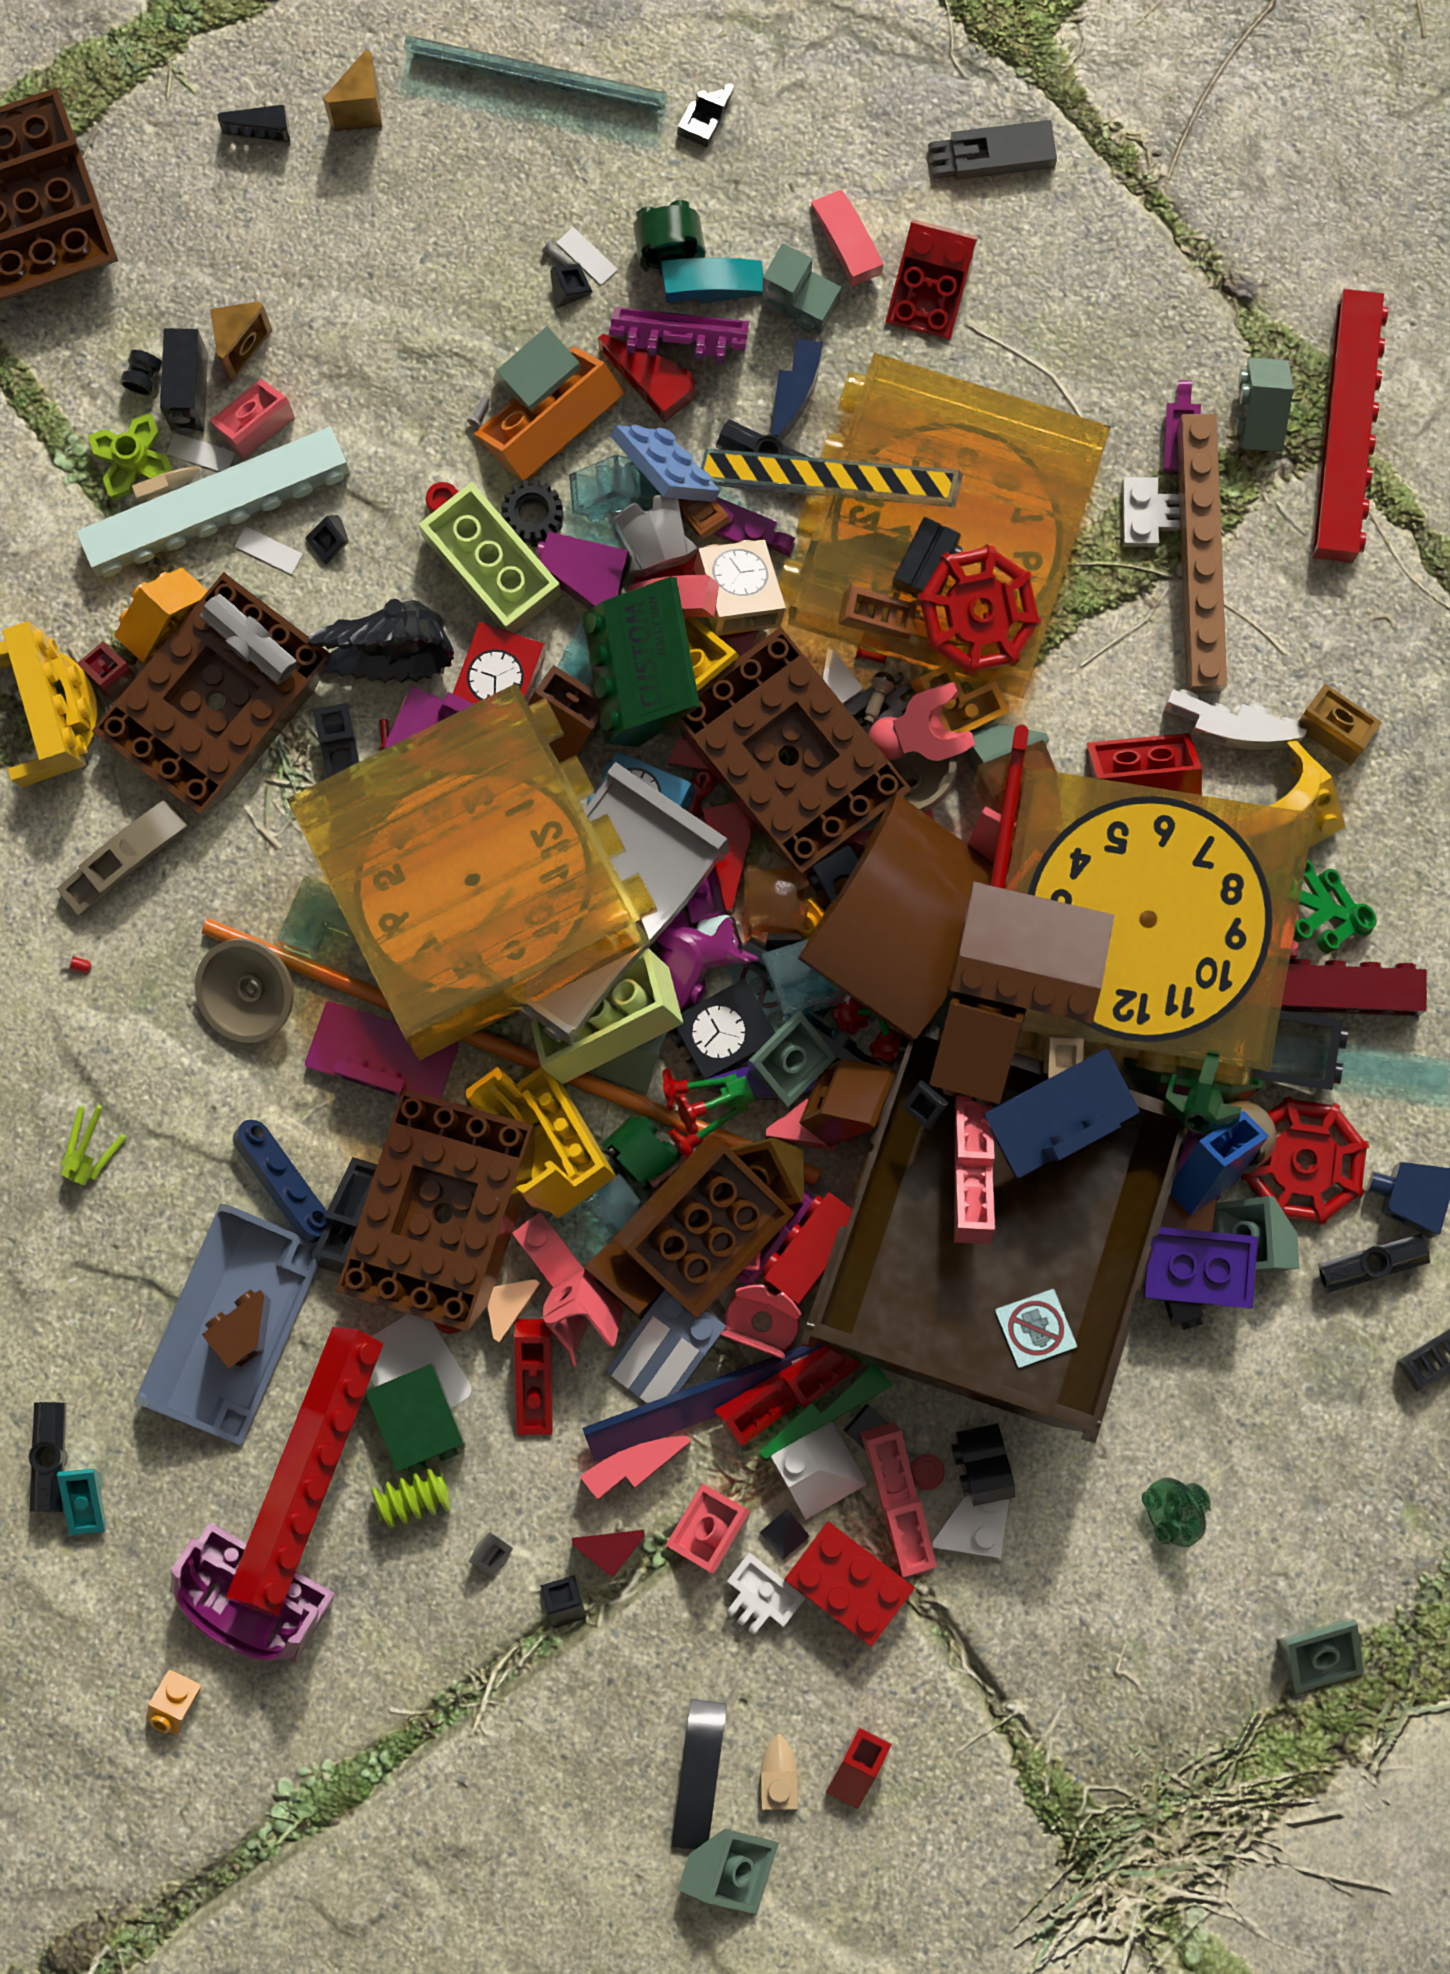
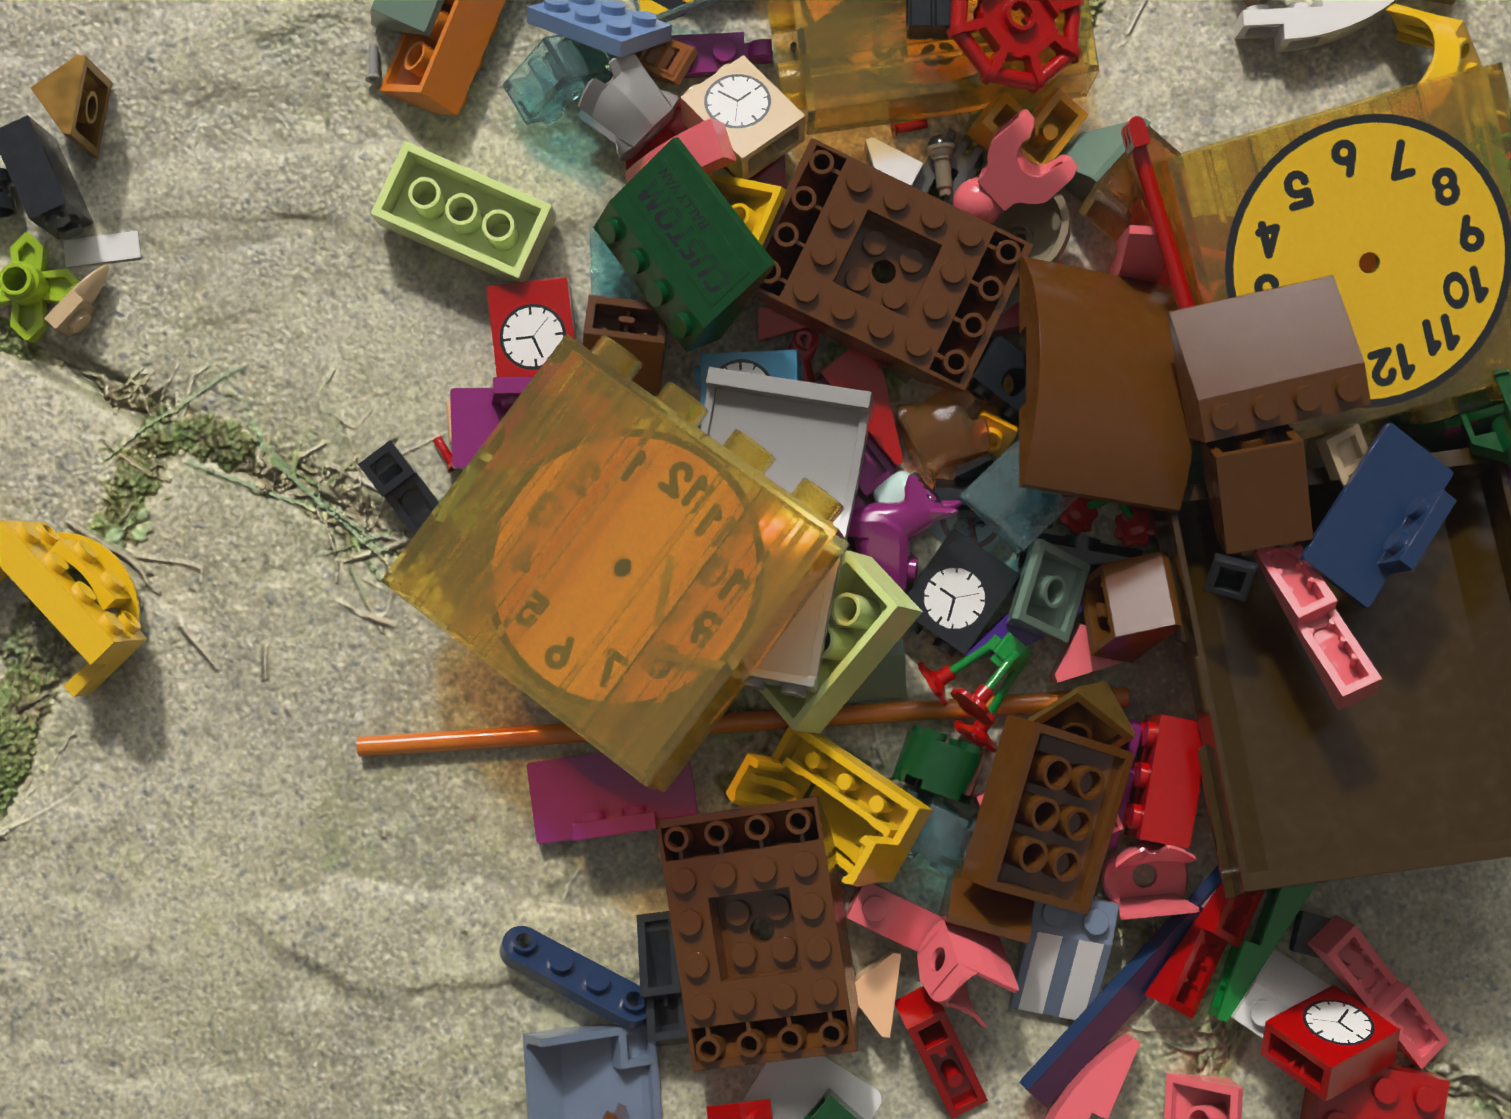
camera: 25 degrees left, 5 degrees up
(78, 964) = (245, 852): red piece -> none
(78, 1165) = (352, 1064): lime plant -> none
(107, 671) = (120, 528): dark red slope -> none
(121, 856) = (233, 717): dark tan slope -> none
(157, 612) = (141, 439): light orange brick -> none
(165, 715) = (232, 441): reddish brown slope -> none
(213, 502) = (141, 295): light aqua brick -> none
(227, 992) = (424, 811): dark tan dish -> none
(248, 639) = (251, 423): light grey piece -> none
(253, 418) = (139, 185): coral slope -> none
(268, 550) = (225, 317): white sticker -> none
(310, 917) = (466, 688): clear light blue brick -> none
(328, 538) = (282, 274): black slope -> none
(393, 643) = (405, 354): black piece -> none
(439, 494) = (376, 172): red tile -> none
(533, 493) = (477, 122): black tyre -> none
(584, 568) = (569, 176): magenta slope -> none
(784, 1534) = (1275, 1086): black slope -> none
(834, 1508) = (1330, 1042): none -> red brick
(862, 622) = (888, 91): dark orange slope -> none
(927, 1471) = (1392, 946): red plate -> none
(974, 1529) = (1467, 972): white wing -> none
(985, 1465) = (1452, 914): black brick -> none
(1036, 1328) = (1451, 753): clear light blue sticker -> none
(1148, 761) = (1252, 99): red slope -> none

